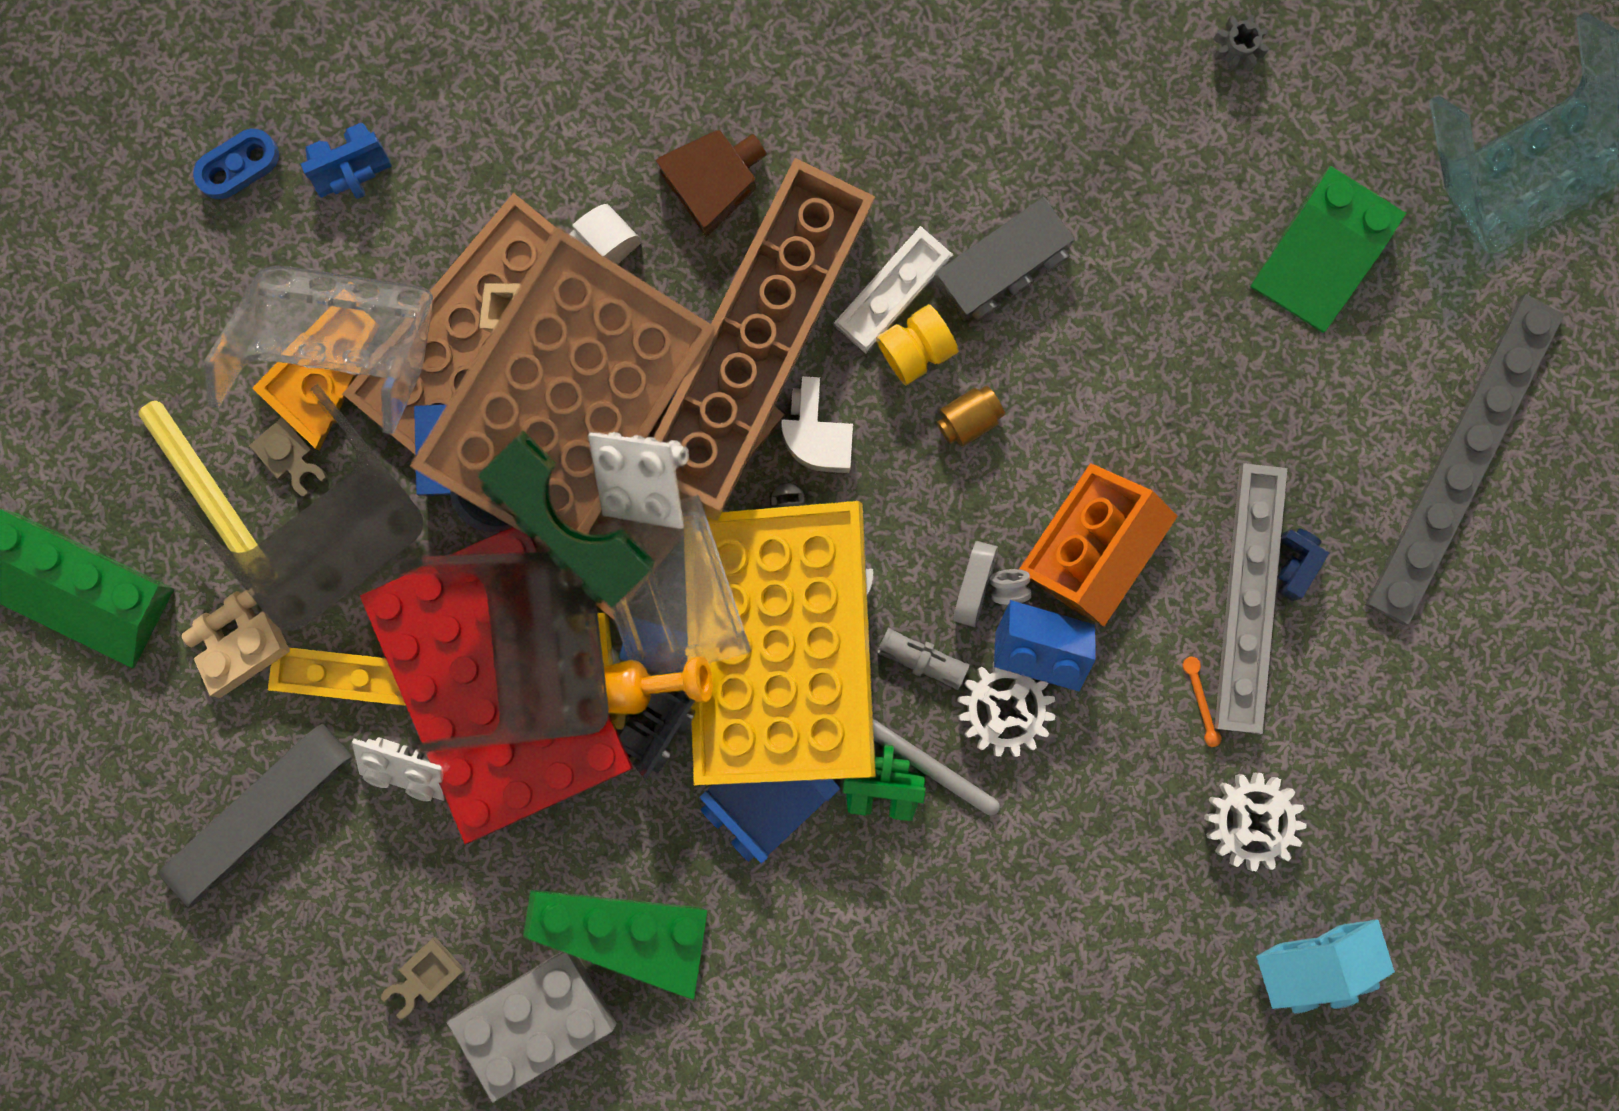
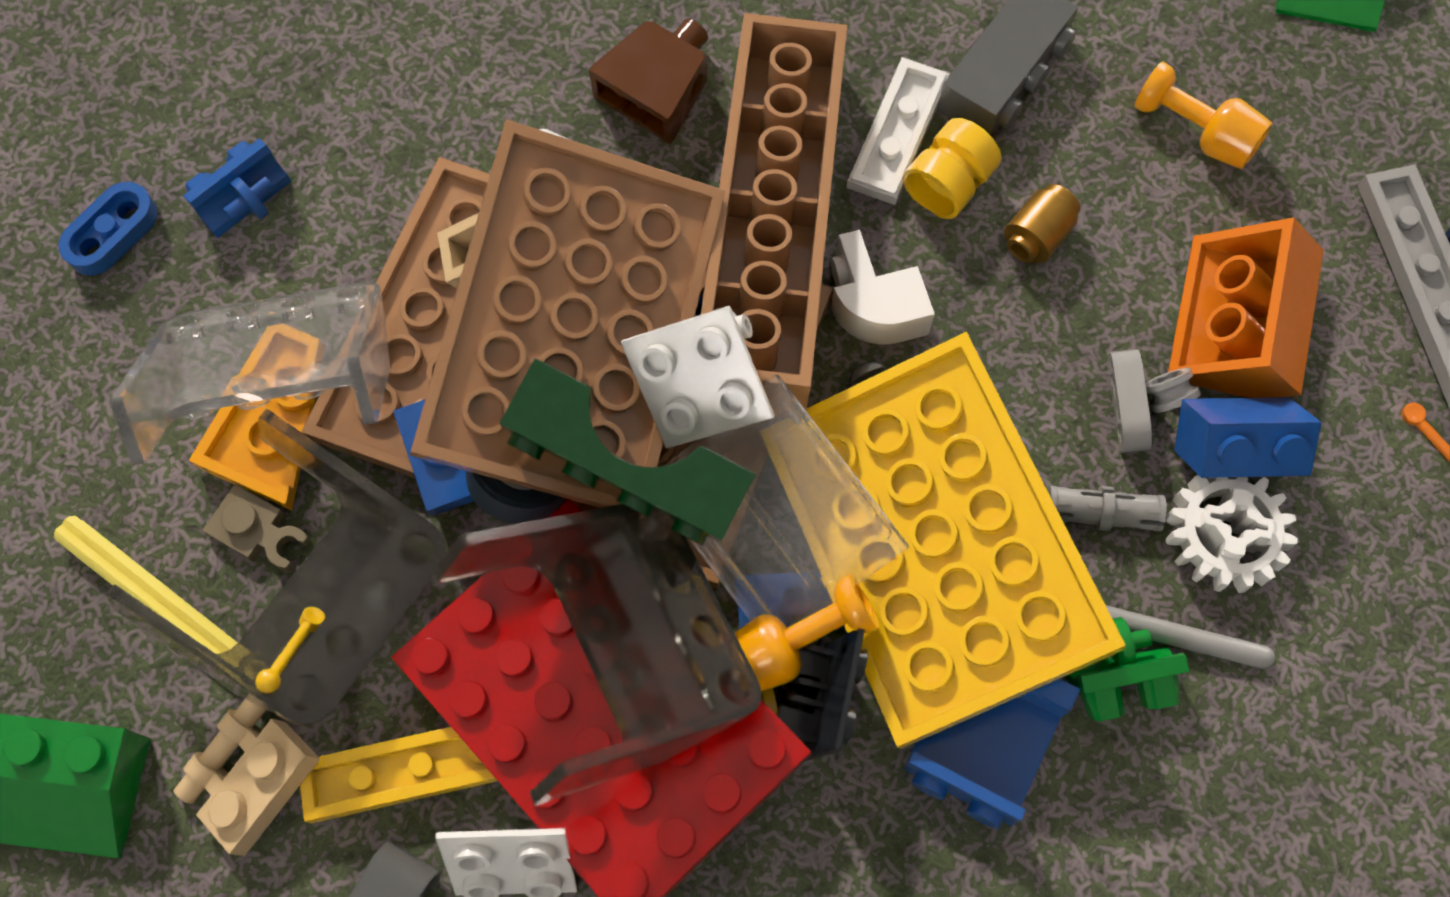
camera: 15 degrees left, 15 degrees down
(309, 548) = (269, 679): none -> yellow hinge
(1155, 387) = (1229, 133): none -> light orange piece

